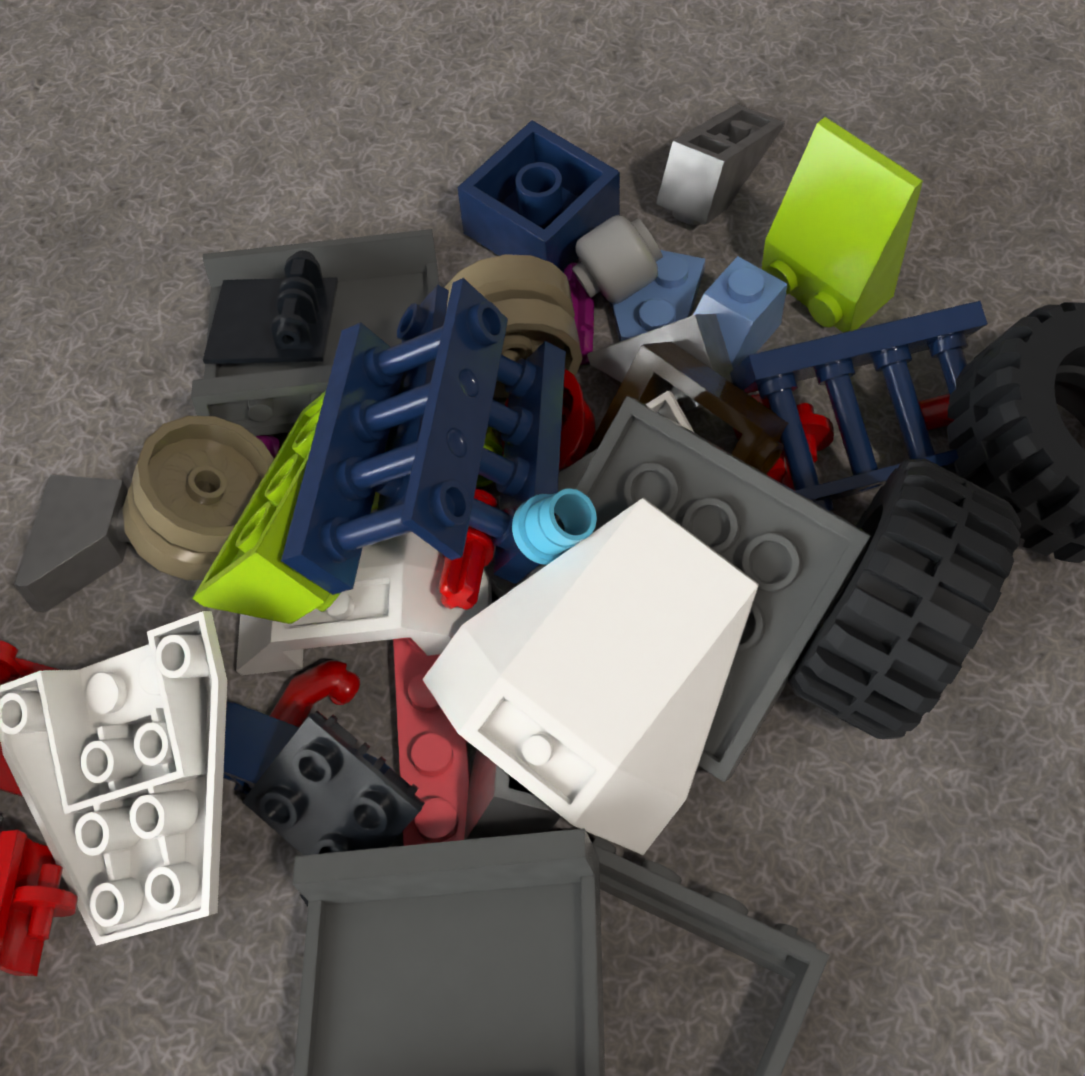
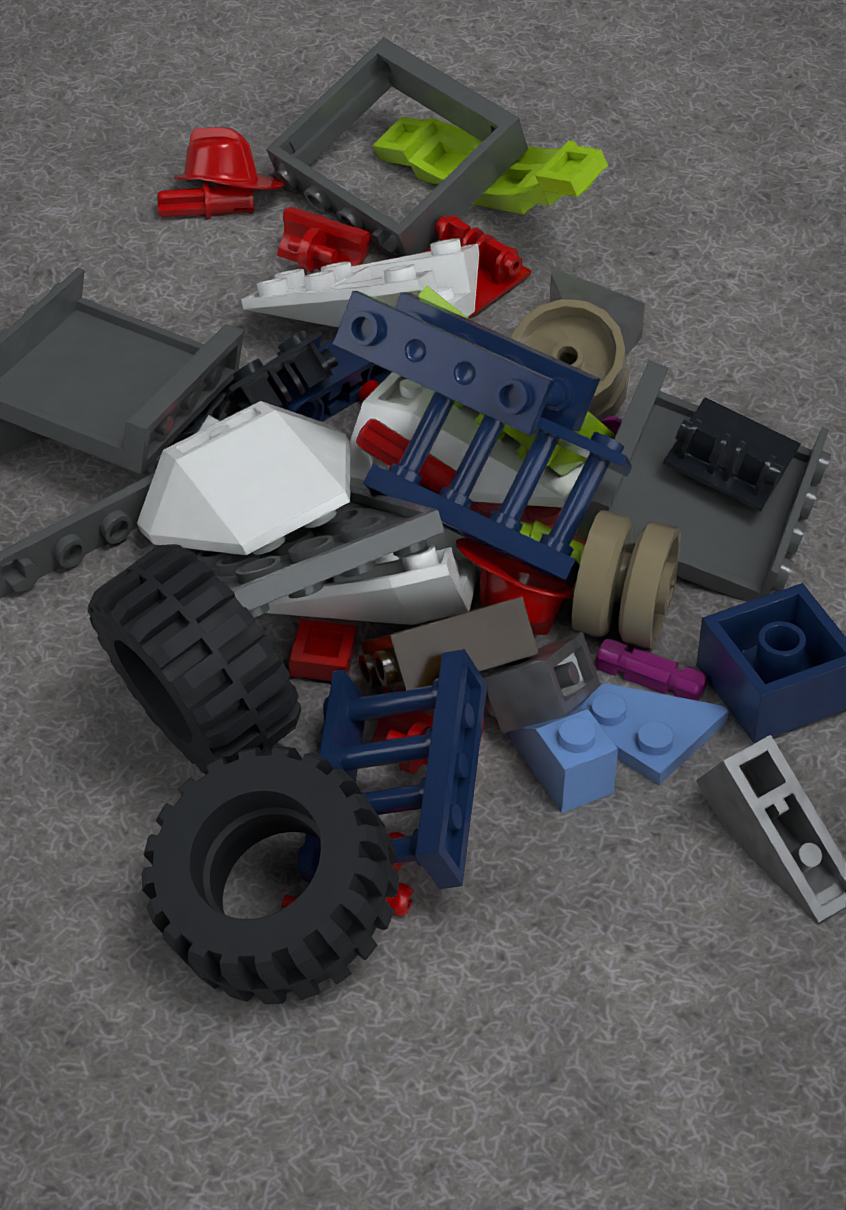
camera: 110 degrees right, 15 degrees down
(538, 532) = (384, 474): medium azure piece -> none
(617, 259) = (669, 676): light grey head -> none
(842, 228) = (596, 831): lime slope -> none

